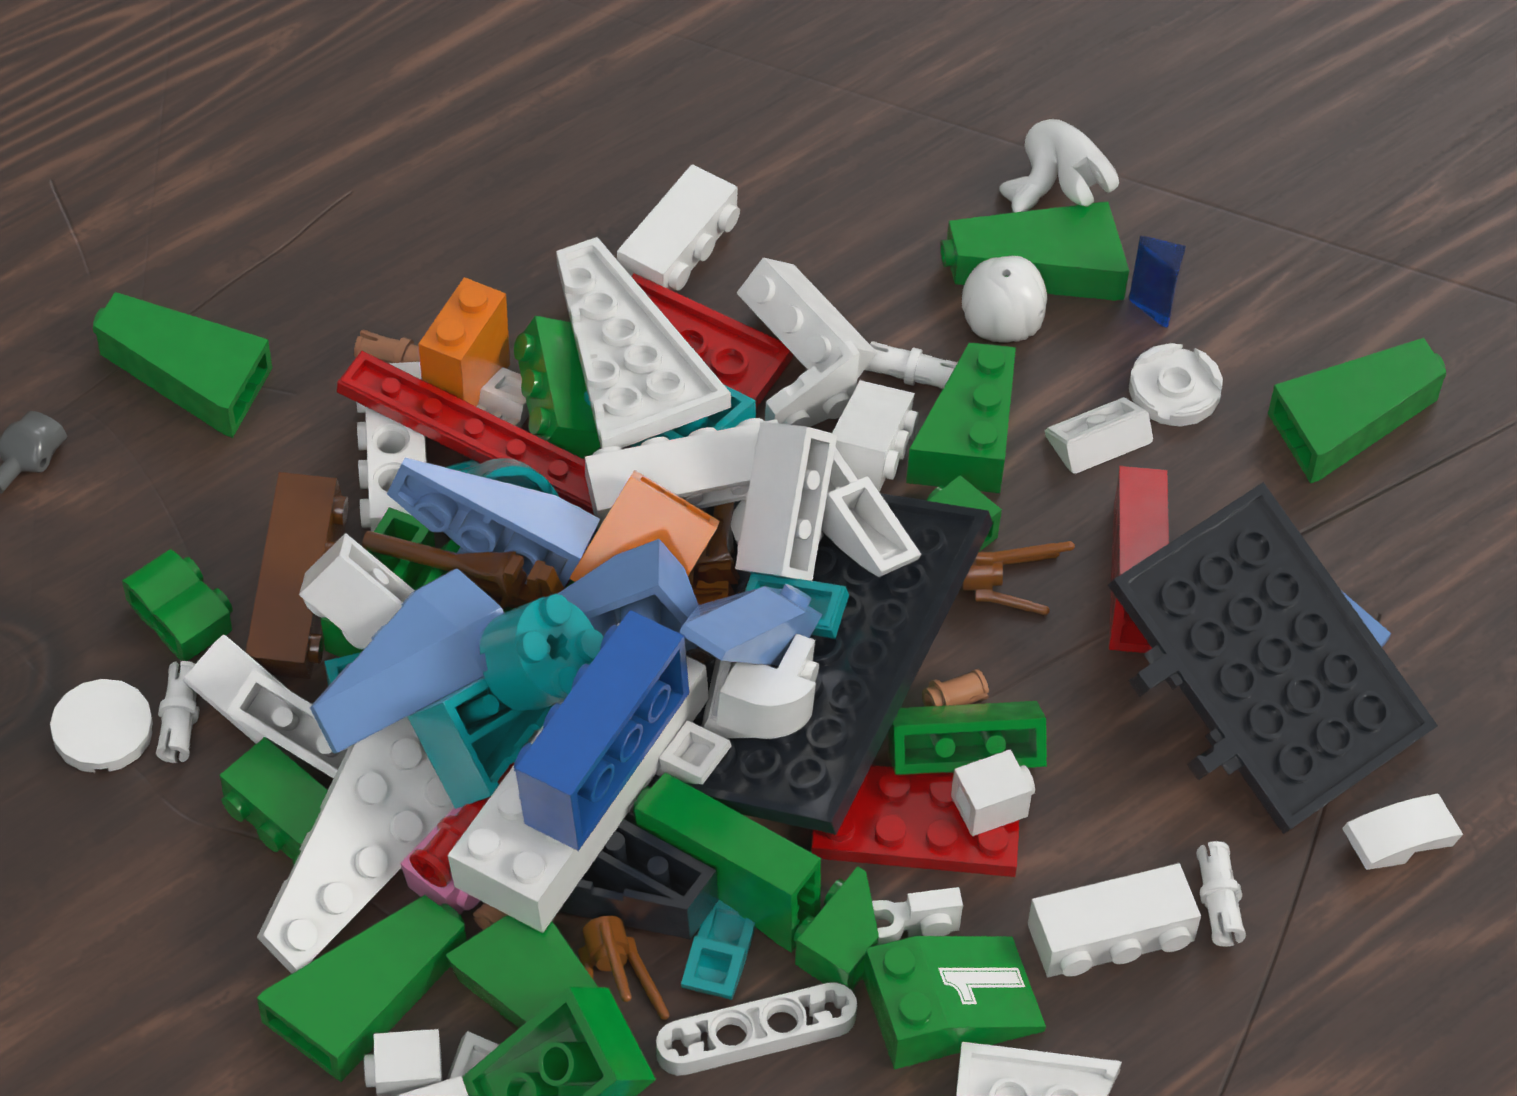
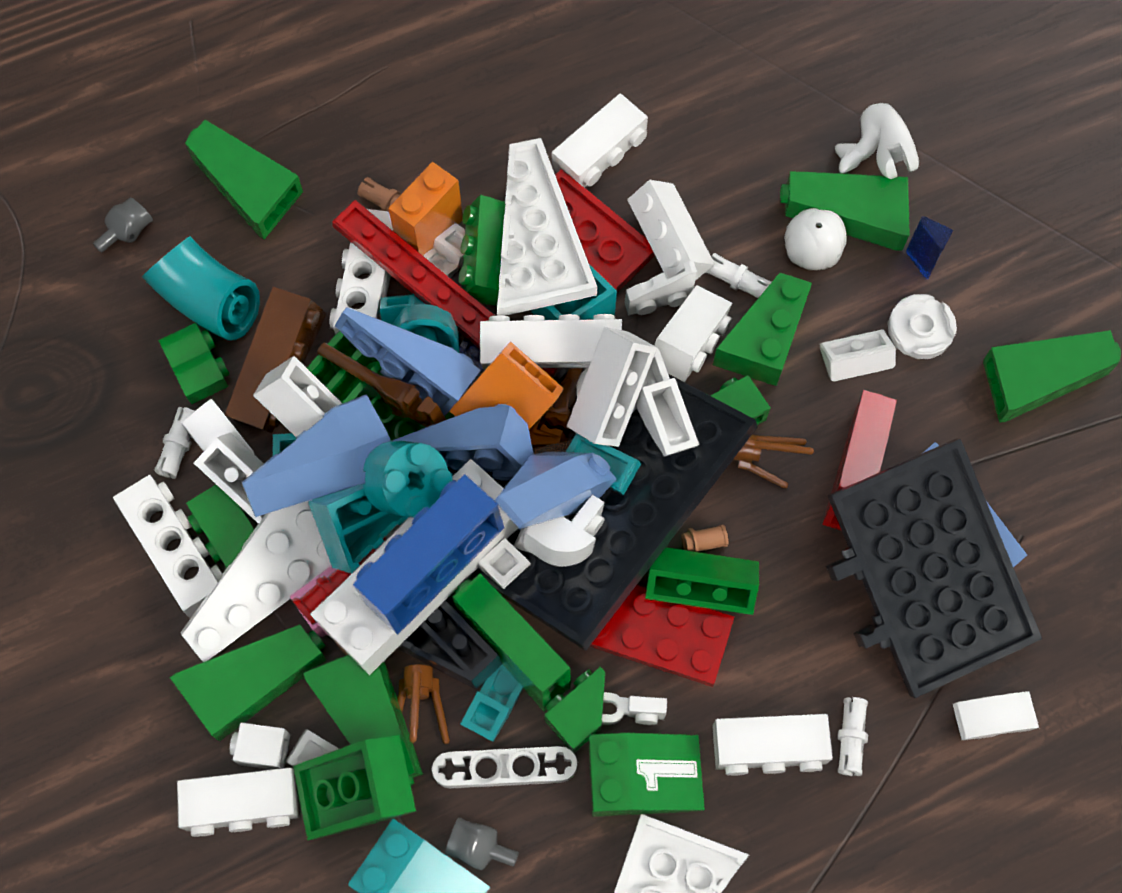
camera: 15 degrees right, 15 degrees up
(101, 725) = (125, 441): white tile -> none
(160, 784) = (138, 505): none -> white brick
(173, 504) = (205, 290): none -> teal brick
(992, 792) = (709, 630): white brick -> none

